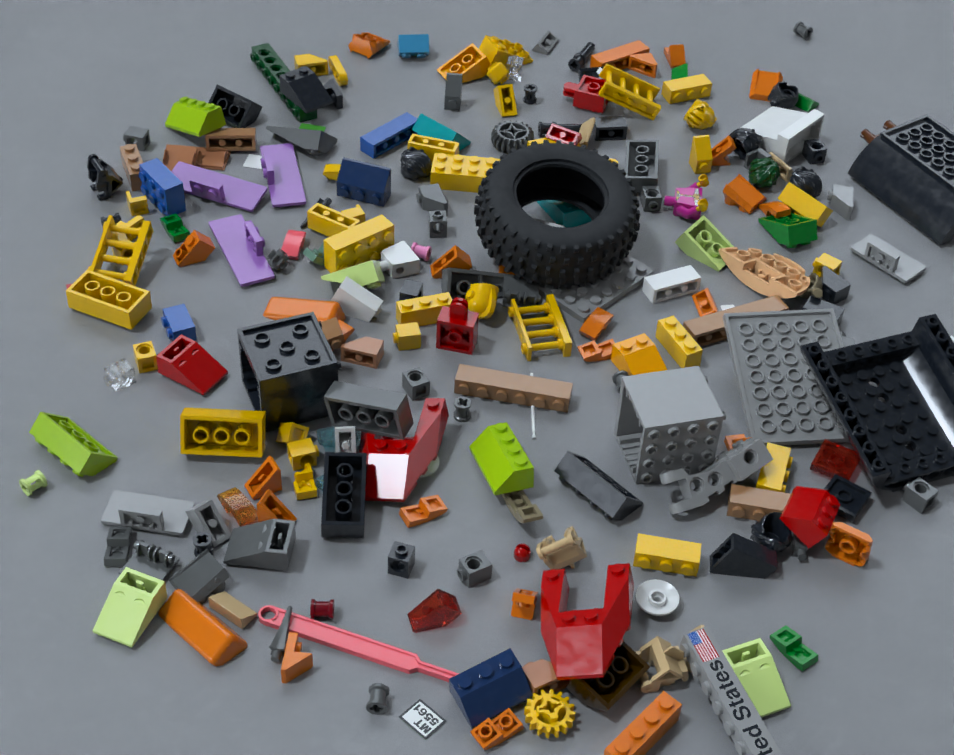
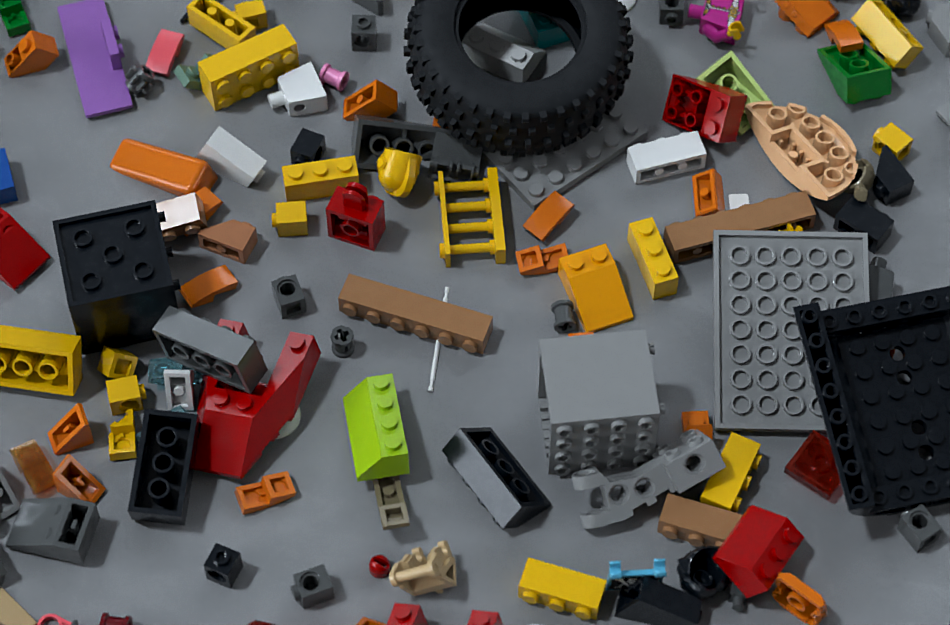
camera: 10 degrees right, 15 degrees up
(358, 377) = (205, 286): none -> orange slope
(365, 274) = (240, 119): yellowish green slope -> none
(692, 249) = (704, 108): none -> red slope
(714, 538) = (620, 579): none -> medium azure flag
(849, 495) = (819, 521): black plate -> none

